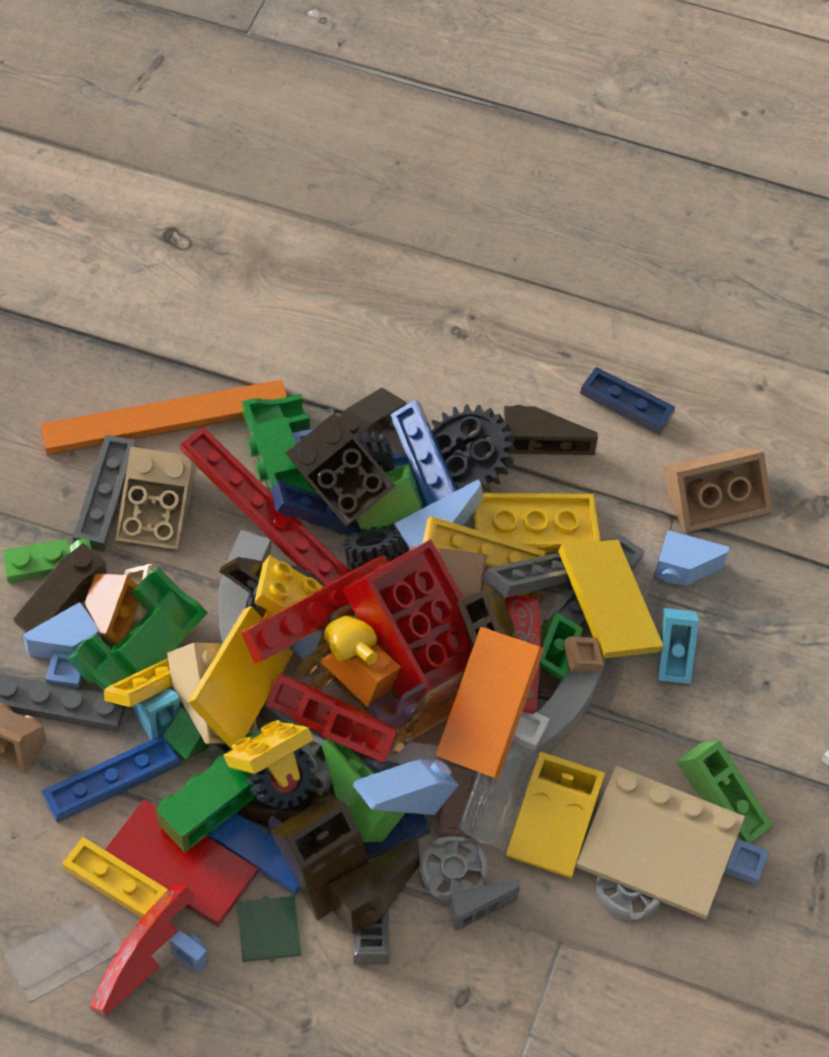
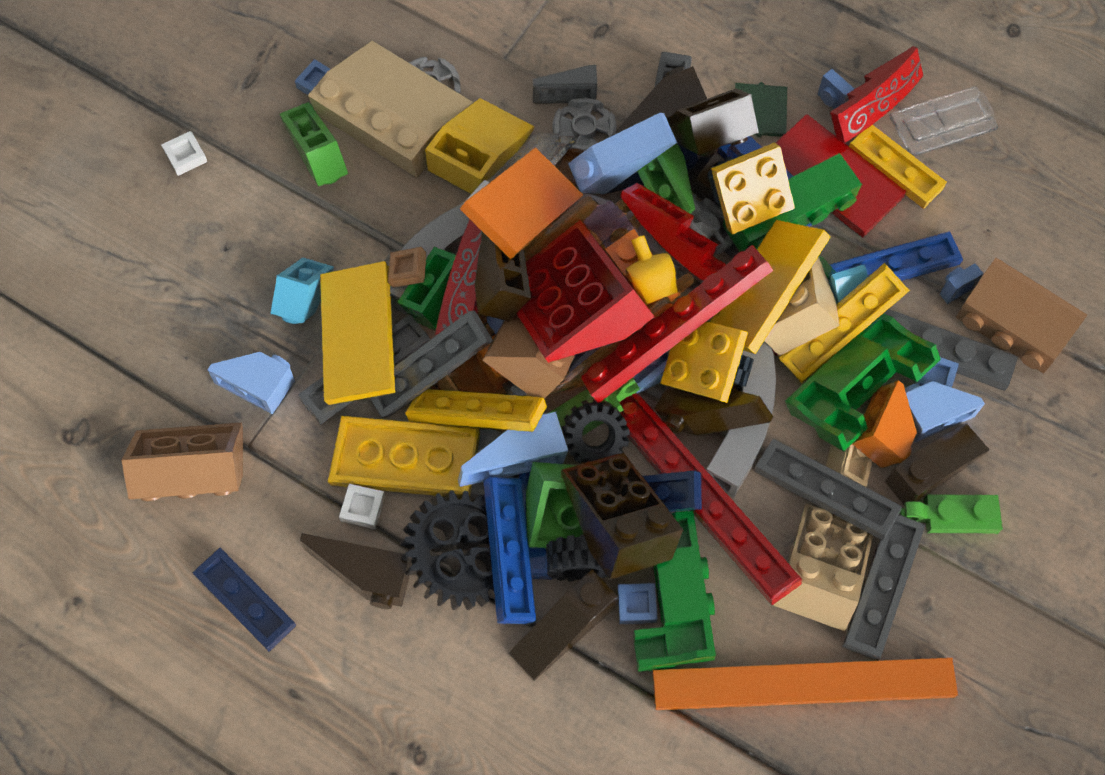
camera: 165 degrees left, 10 degrees up
(44, 760) = (960, 282): none -> medium blue plate
(160, 550) = (828, 489): none -> dark grey plate
(558, 478) = (362, 506): none -> white plate

